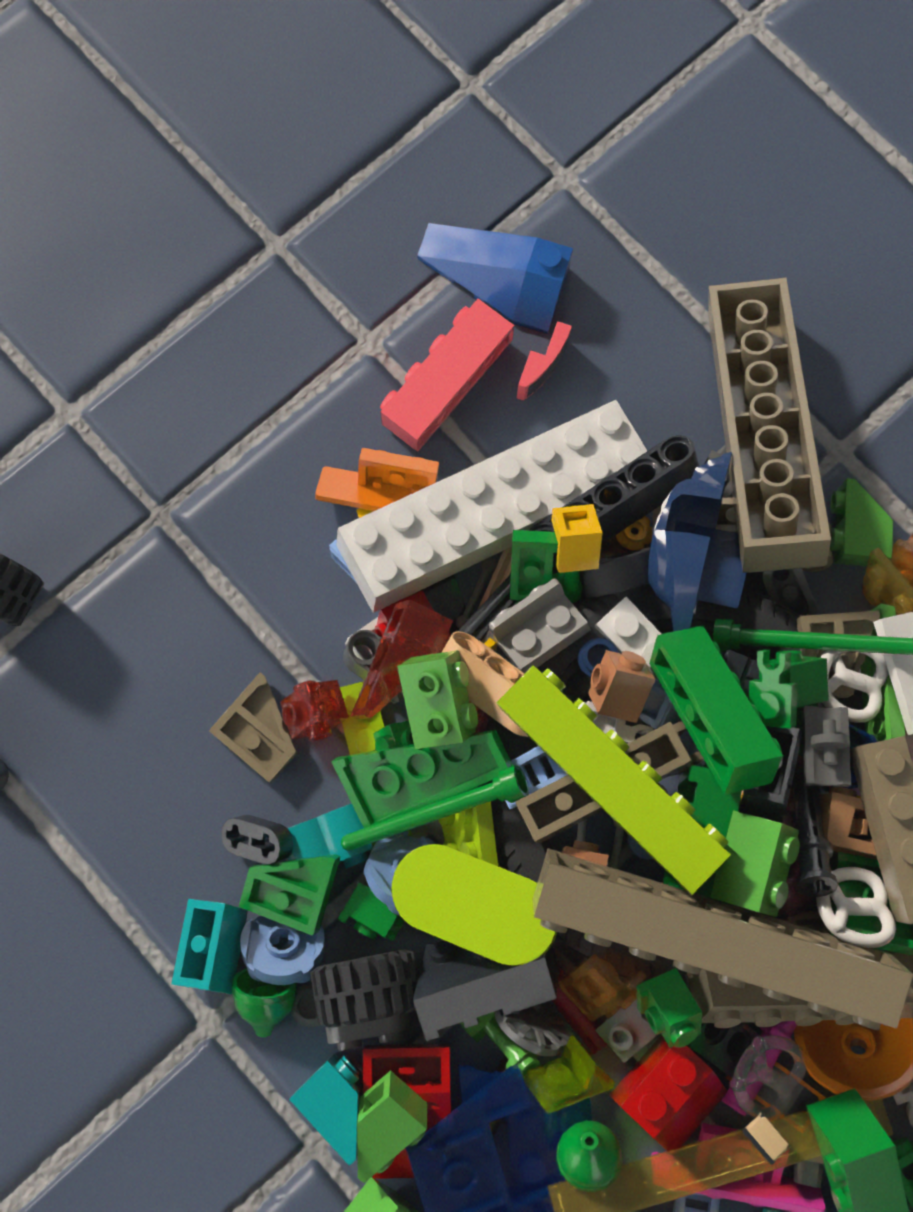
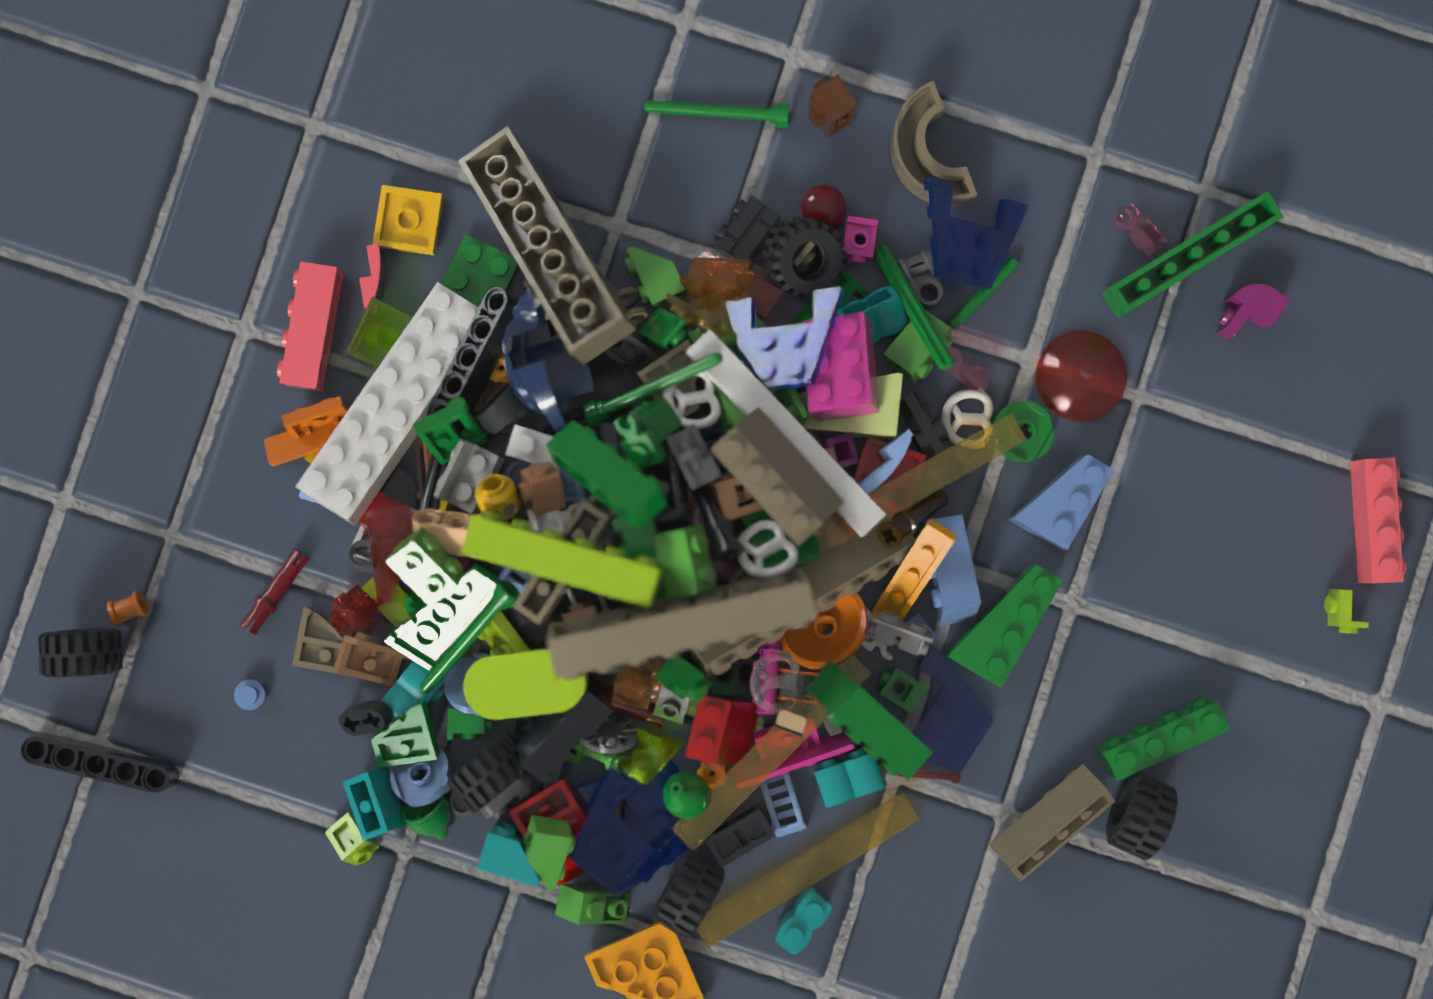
camera: 25 degrees left, 10 degrees up
(65, 565) = (127, 608): none -> orange bush
(141, 737) = (250, 694): none -> medium blue plate
(152, 975) = (348, 841): none -> lime bracket
(237, 638) = (274, 592): none -> dark red pin
(301, 773) = (368, 660): none -> medium nougat bracket
(505, 270) = (313, 224): blue wedge -> none
(515, 418) = (377, 332): none -> clear neon green slope
(568, 661) = (498, 495): none -> yellow head
(577, 538) = (457, 406): yellow panel -> none
(615, 322) = (408, 220): none -> yellow plate
(636, 1140) = (706, 767): none -> light orange plate
(665, 411) = (479, 269): none -> green plate
(848, 589) = (664, 330): none -> green slope

